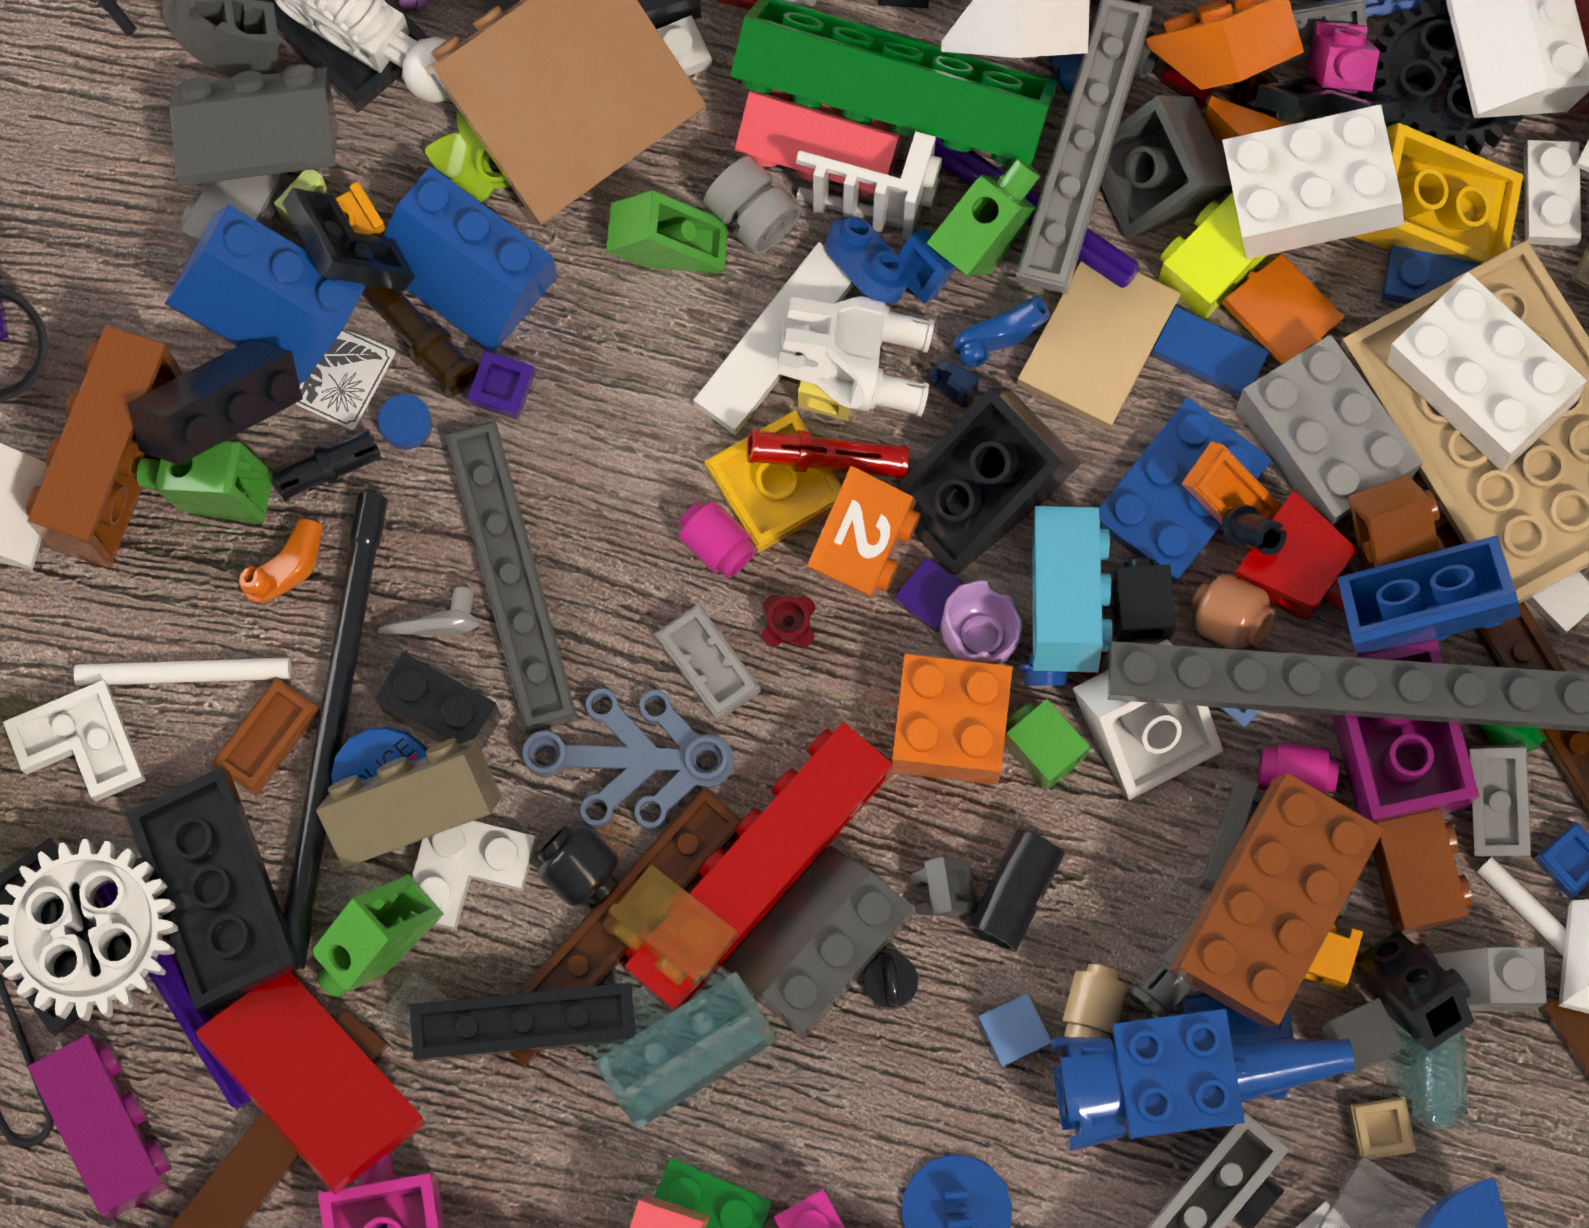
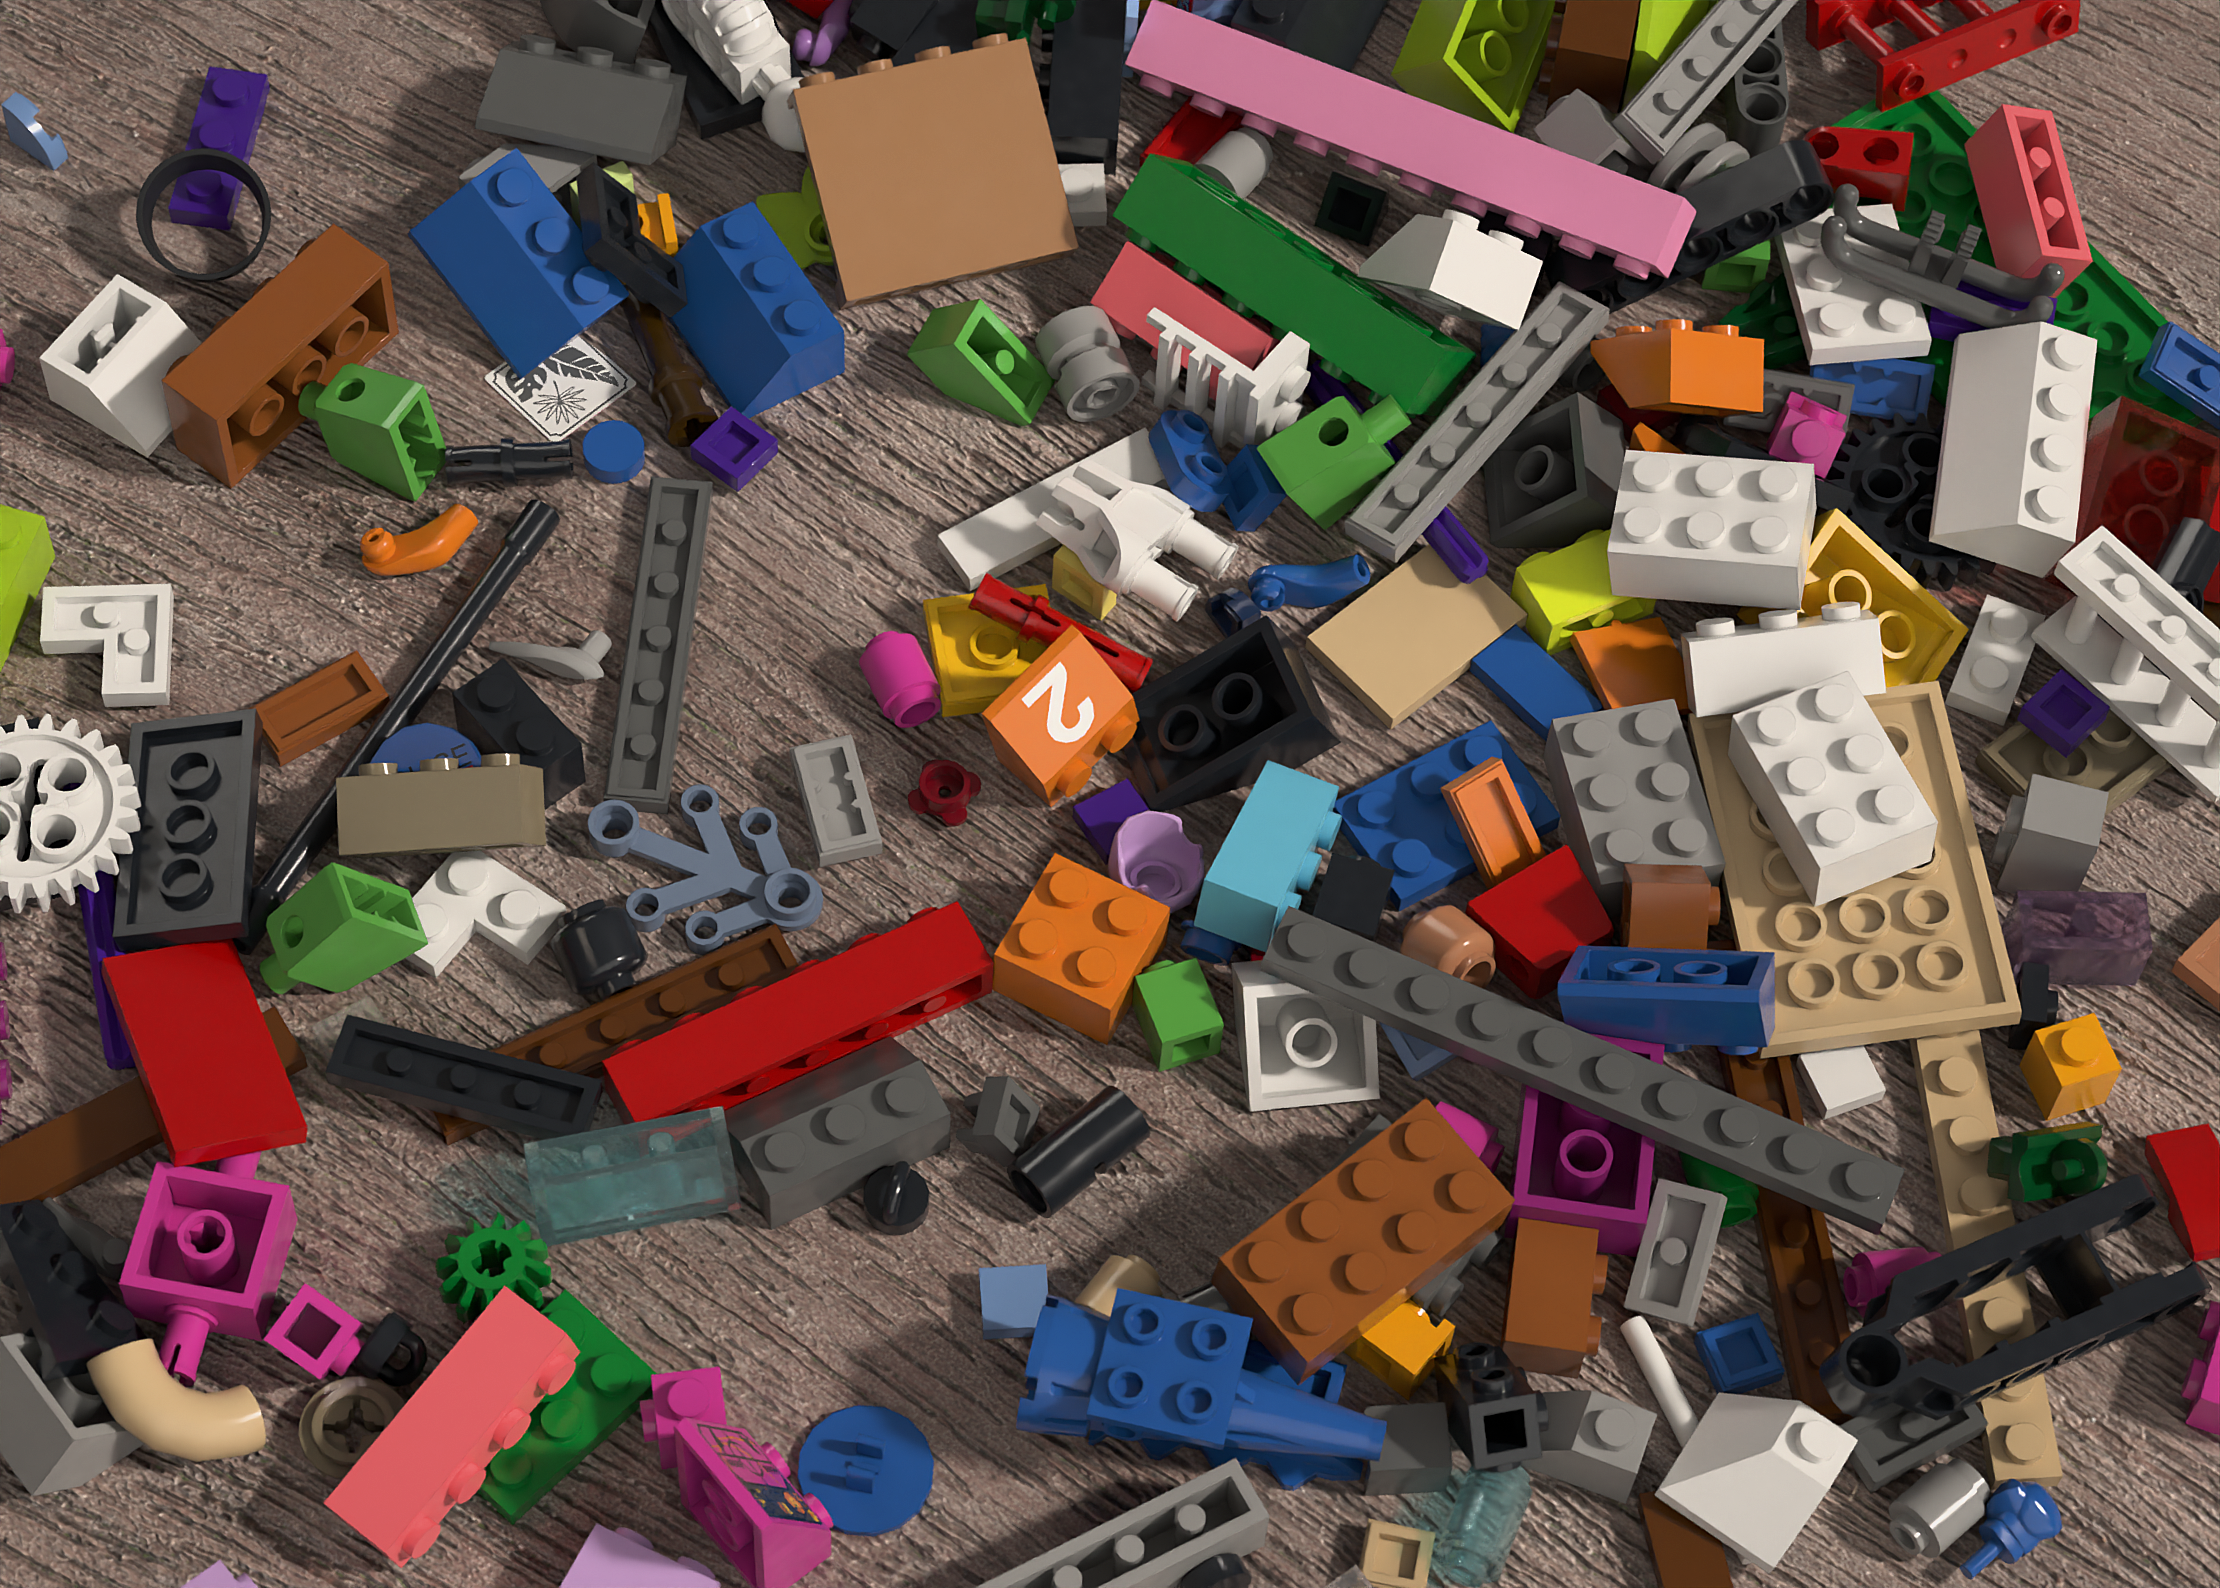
camera: 15 degrees right, 15 degrees down
(183, 671) = (264, 613): white bar -> none
(214, 401) = (415, 340): black brick -> none
(591, 1169) = (510, 1250): none -> green gear
(671, 926) = (672, 1034): clear yellow bracket -> none
(1246, 526) = (1498, 861): black pin -> none
(1402, 270) = (1754, 663): none -> white brick

